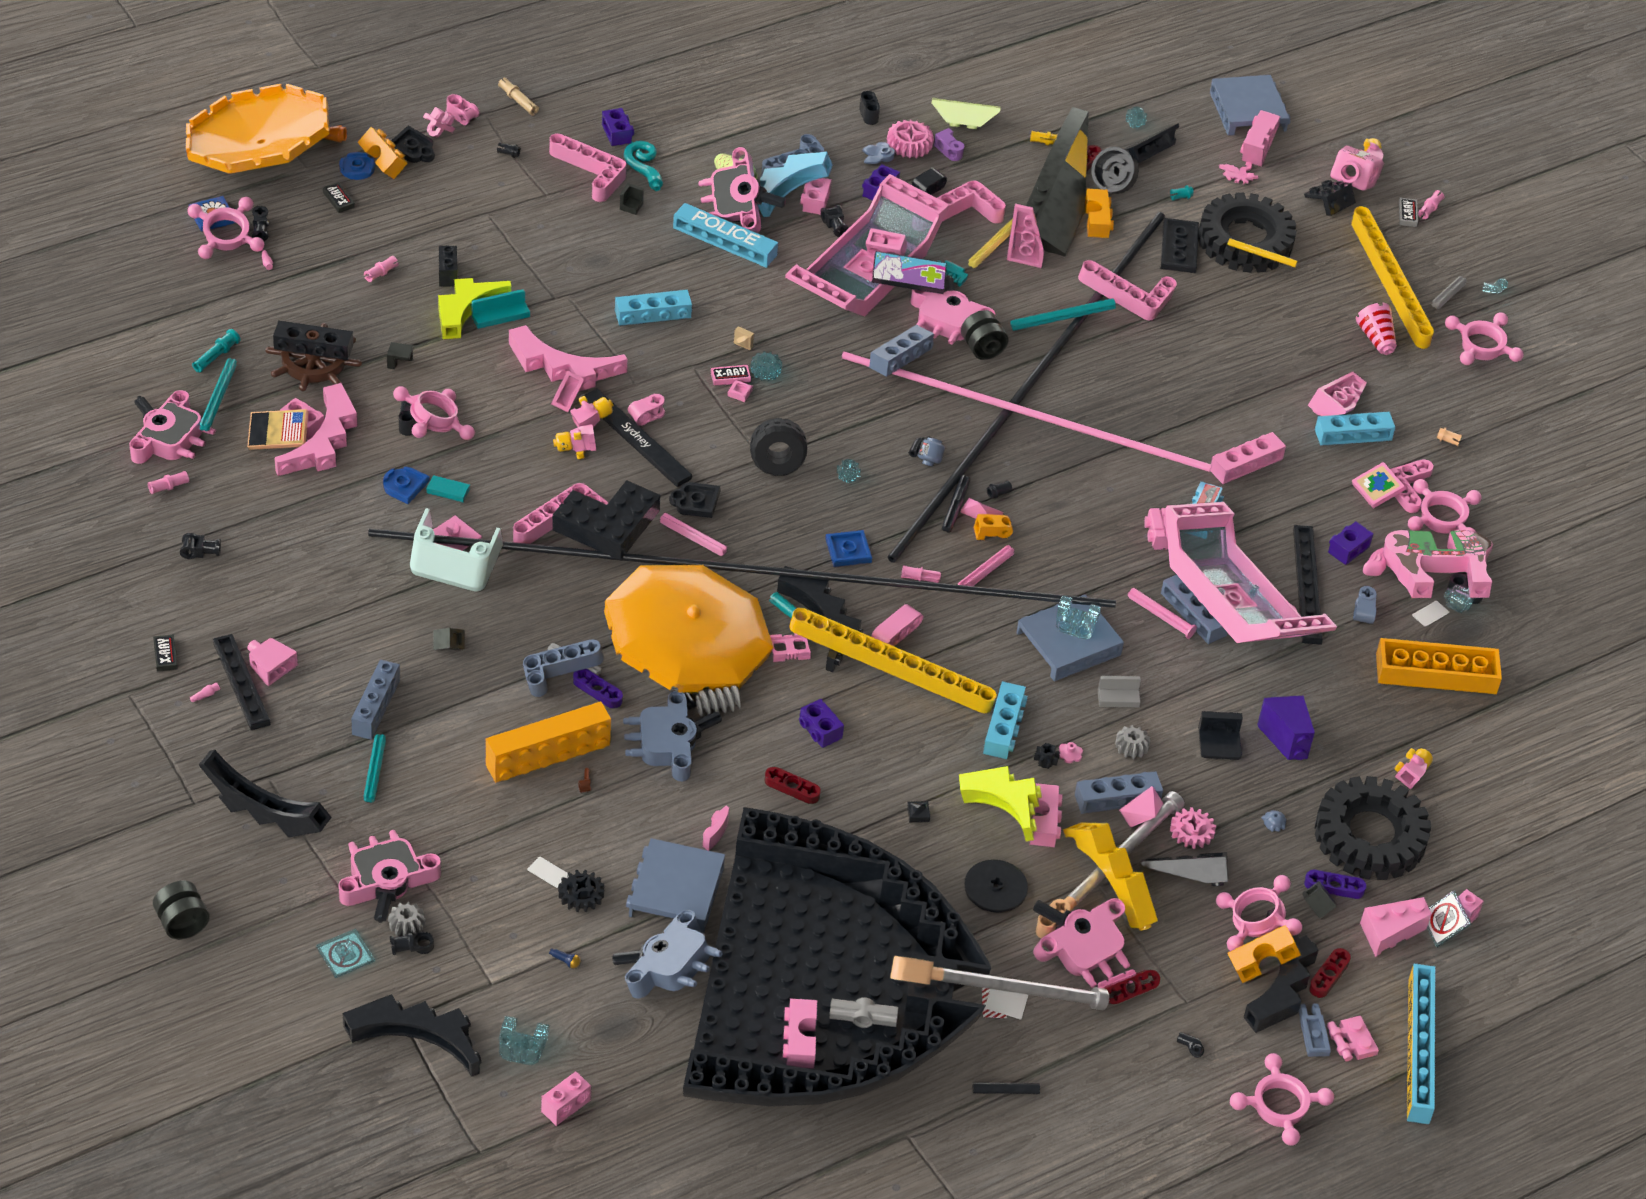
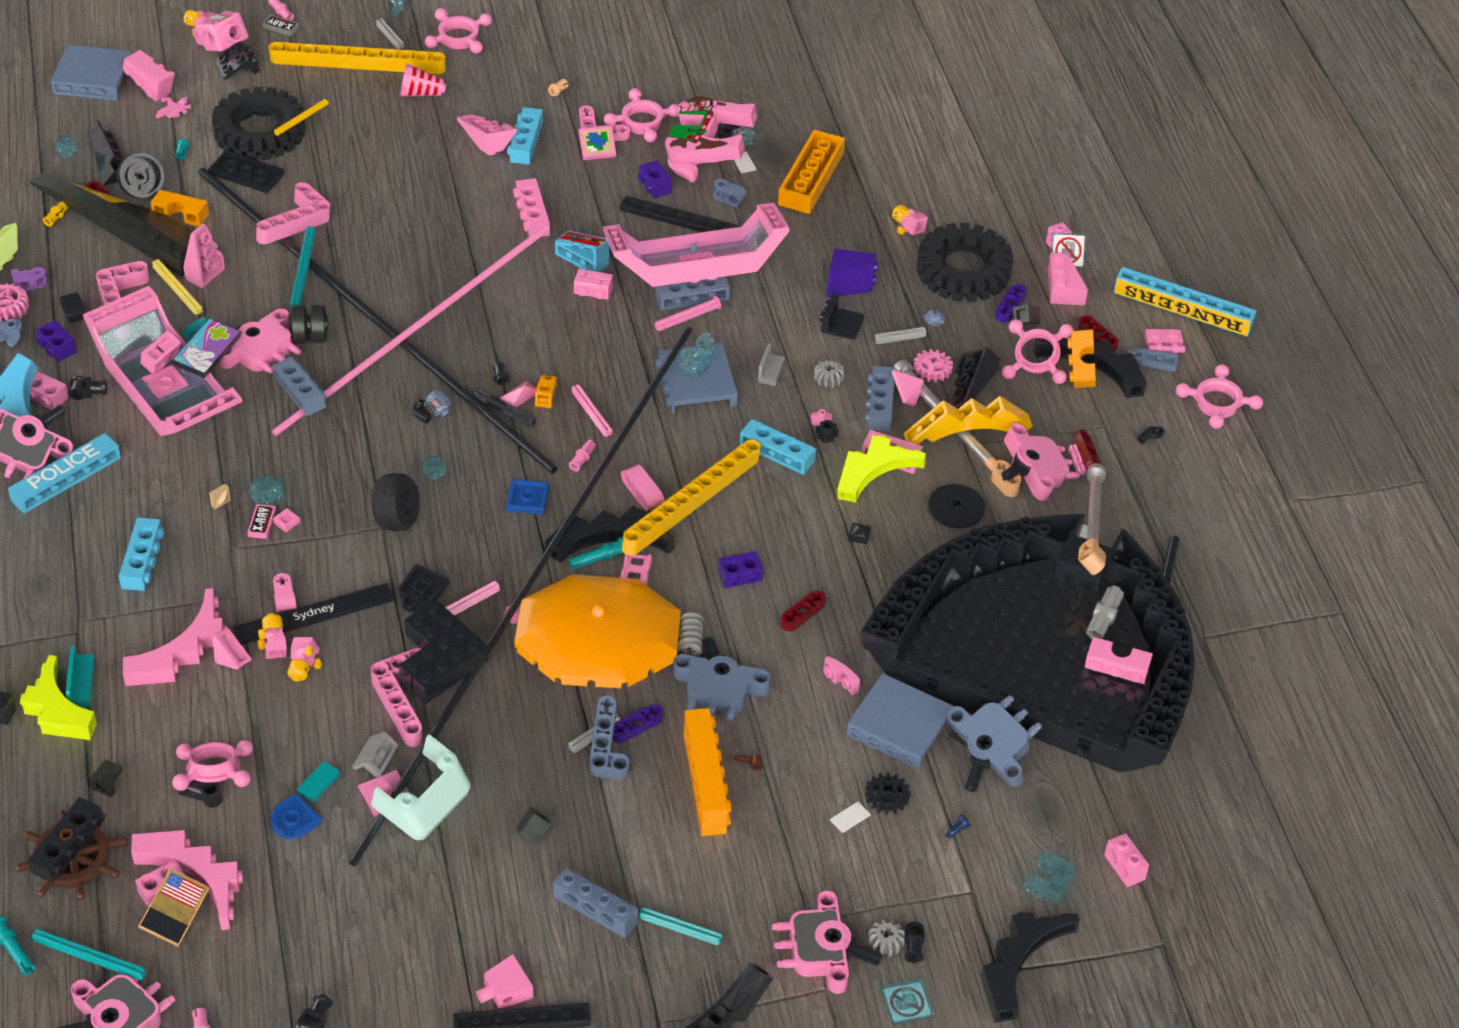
camera: 70 degrees left, 0 degrees up
(490, 517) = (376, 753): none -> light grey panel
(1228, 794) = (900, 335): none -> light grey axle

